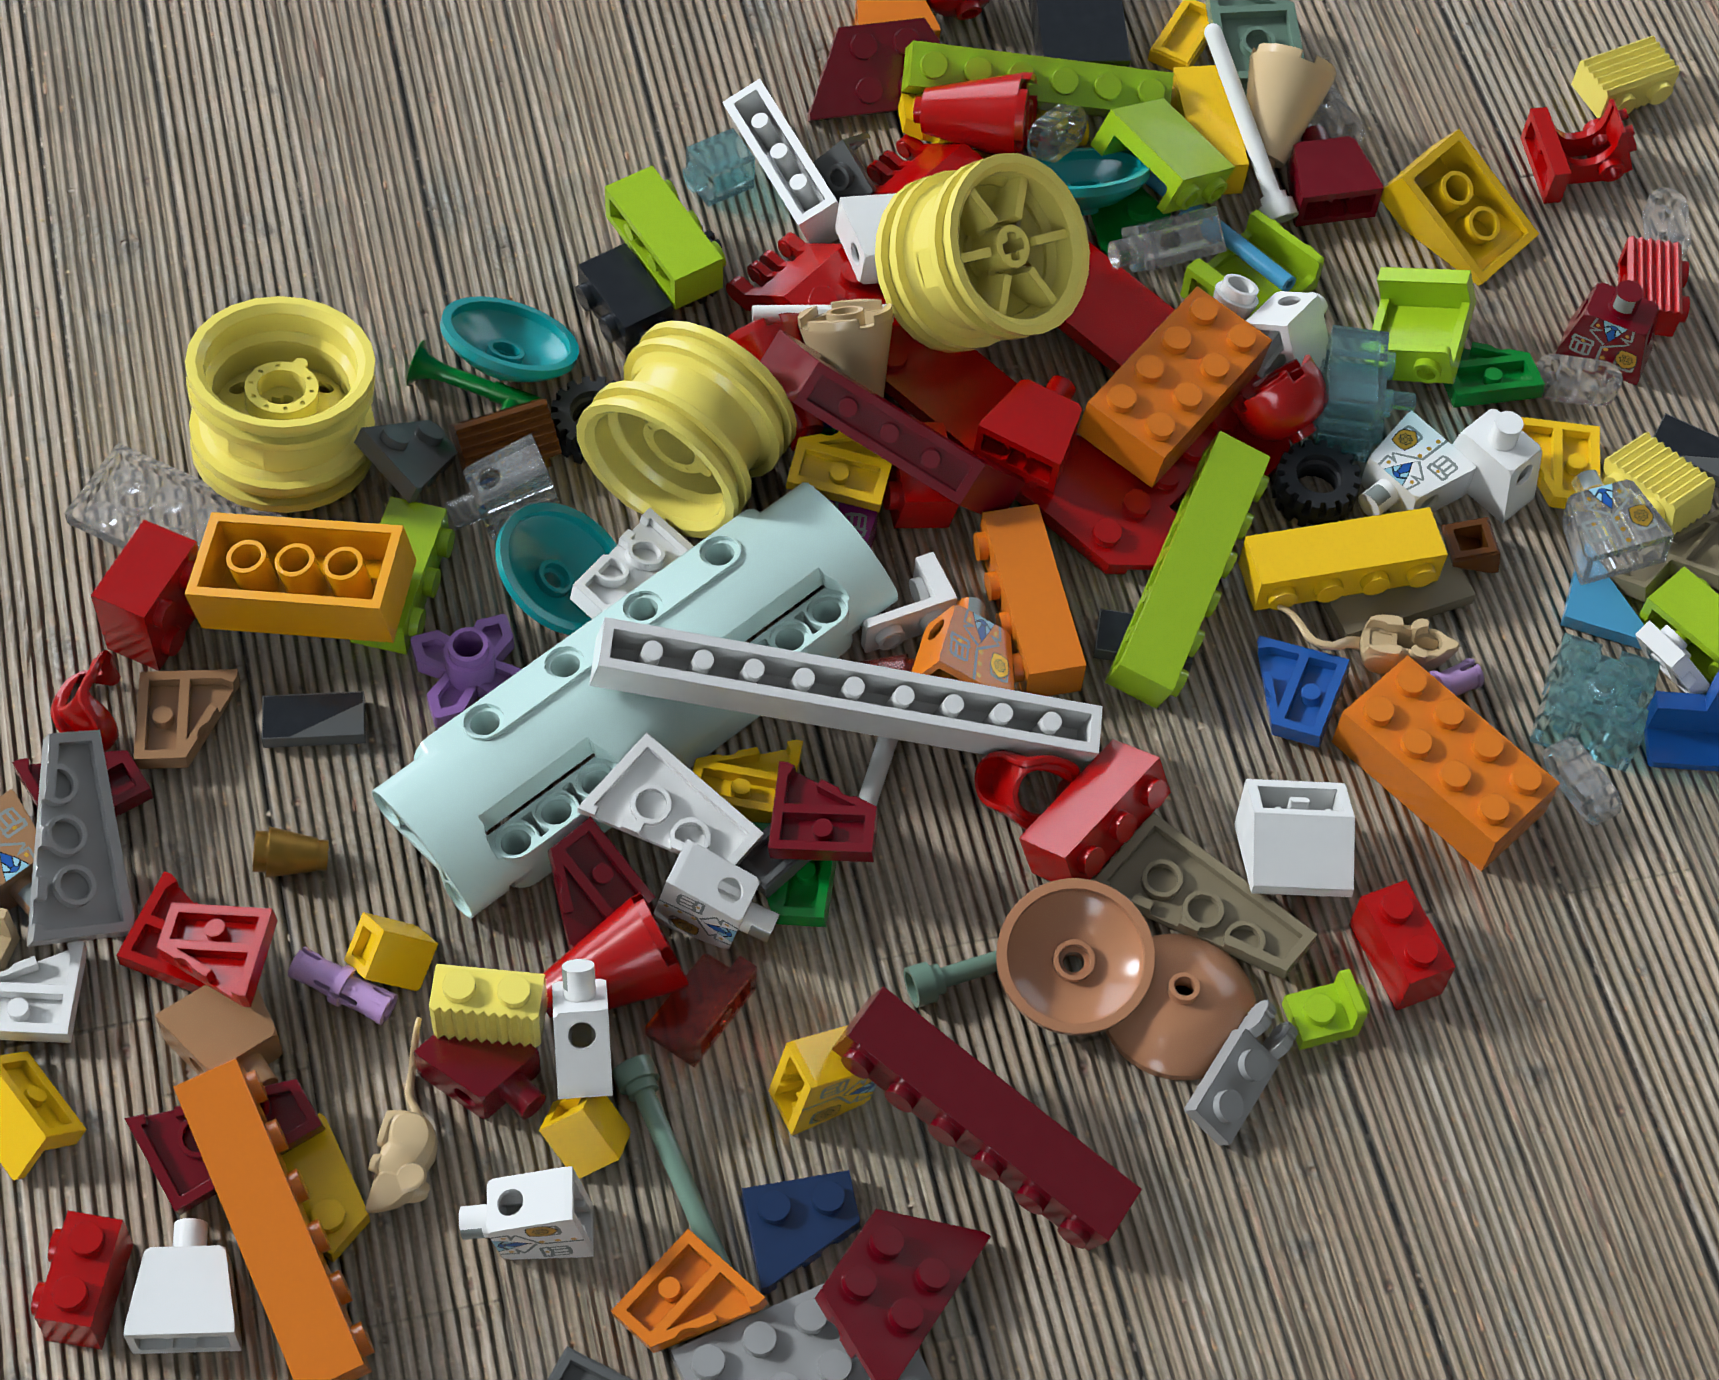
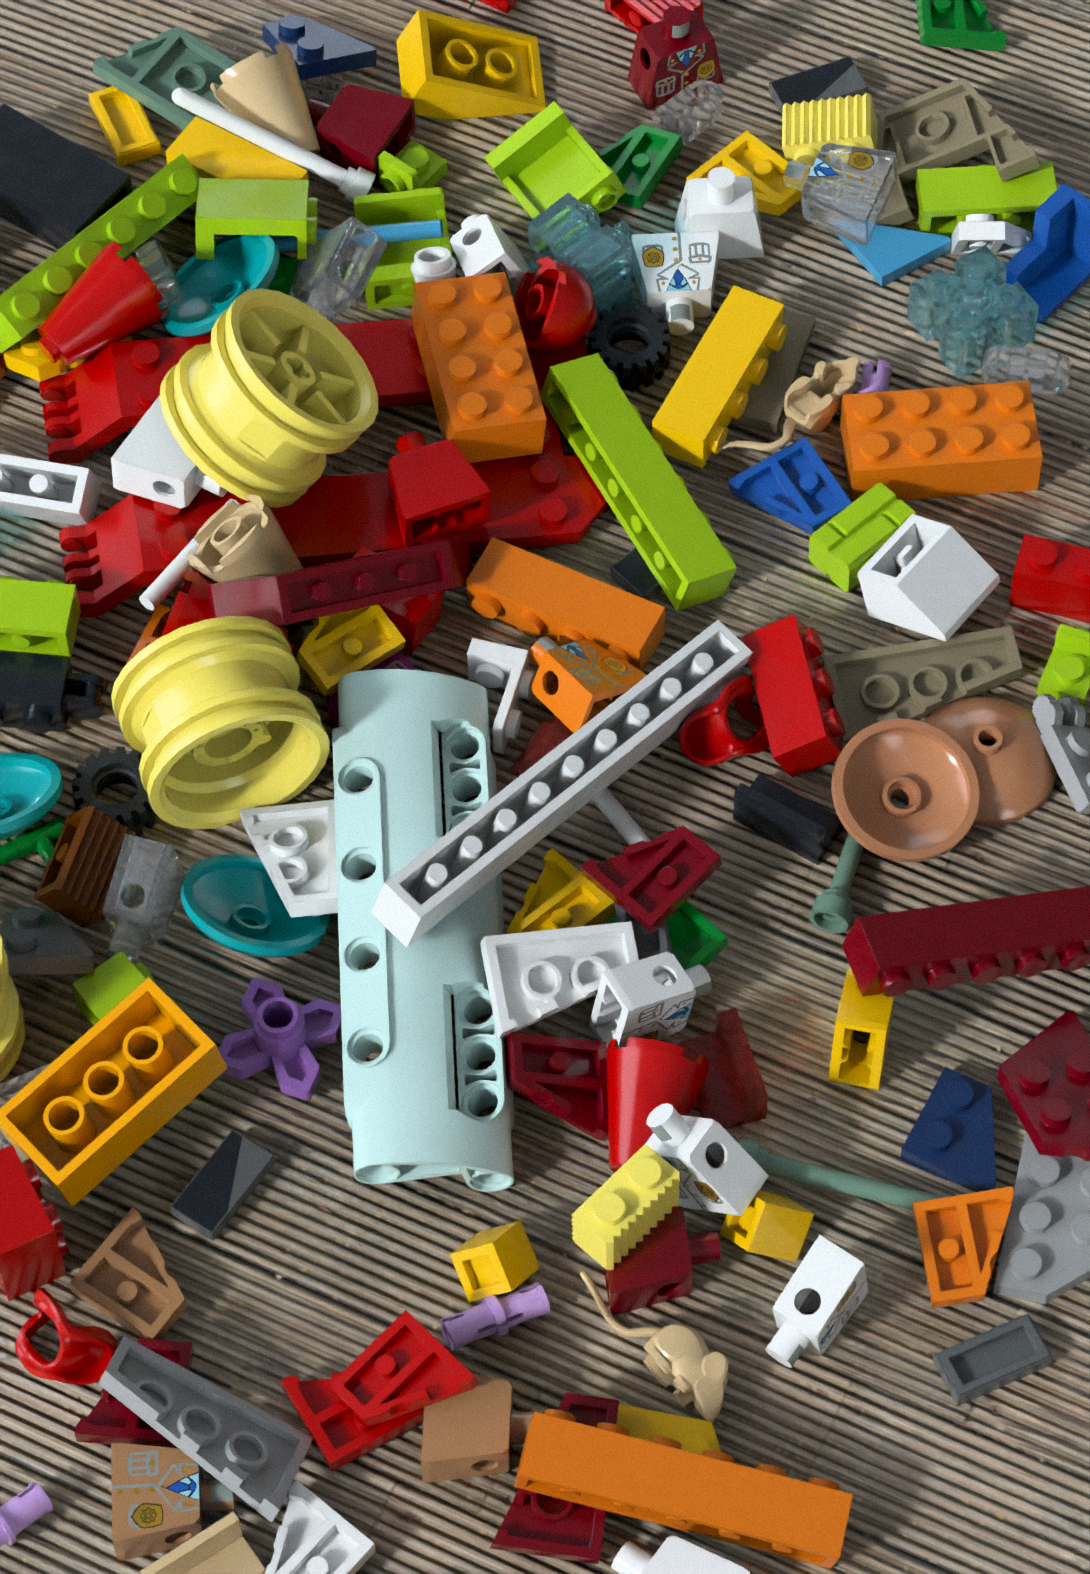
camera: 45 degrees left, 0 degrees up
(288, 853) = (337, 1281): pearl gold cone -> none
(843, 169) = (42, 443): dark grey bracket -> none
(982, 888) = (786, 818): none -> black panel
(1299, 756) = (857, 534): none -> lime brick
(1331, 236) = (410, 168): none -> lime bracket
(1372, 101) = (318, 48): none -> dark blue wing
(1472, 545) = (776, 283): reddish brown slope -> none

